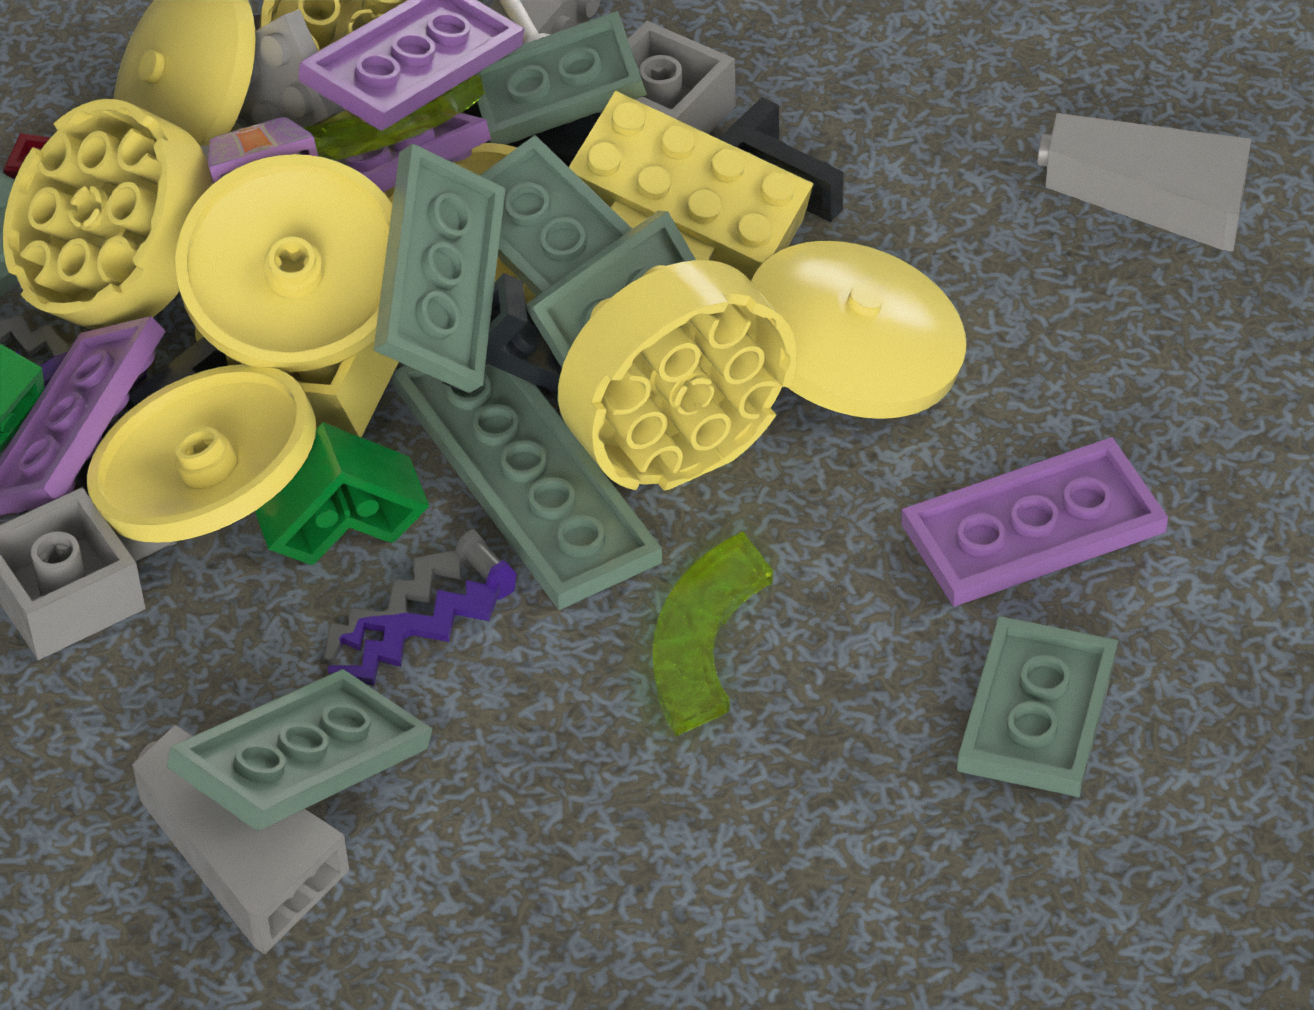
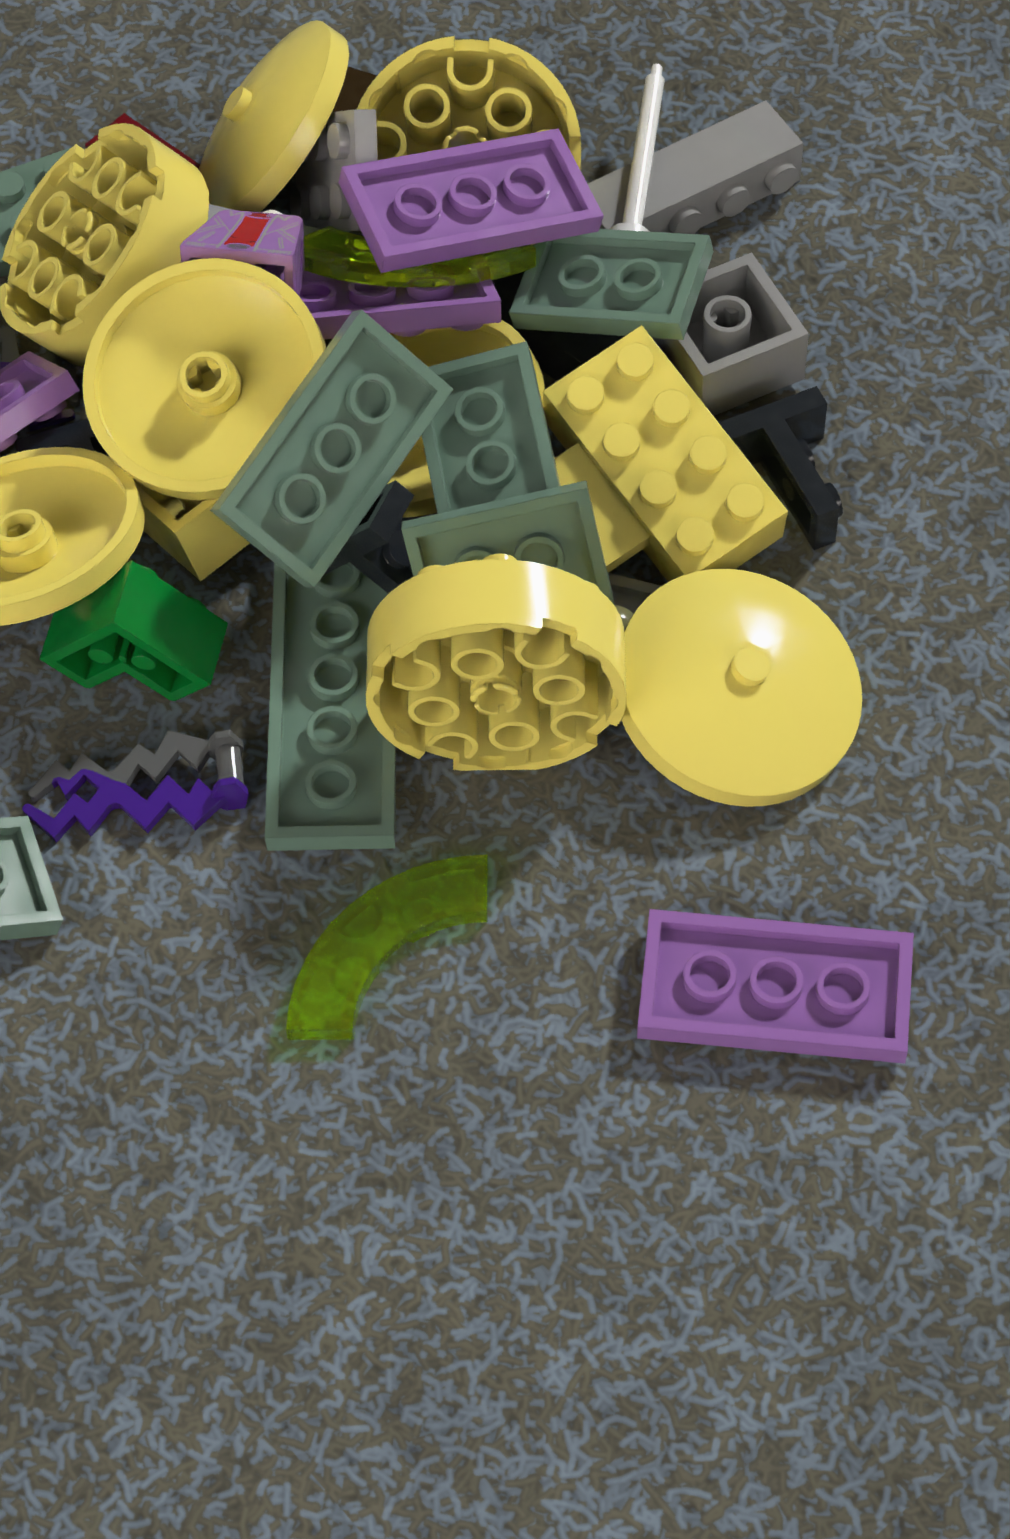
camera: 30 degrees right, 10 degrees up
(1038, 706) = (638, 1193): sand green plate -> none

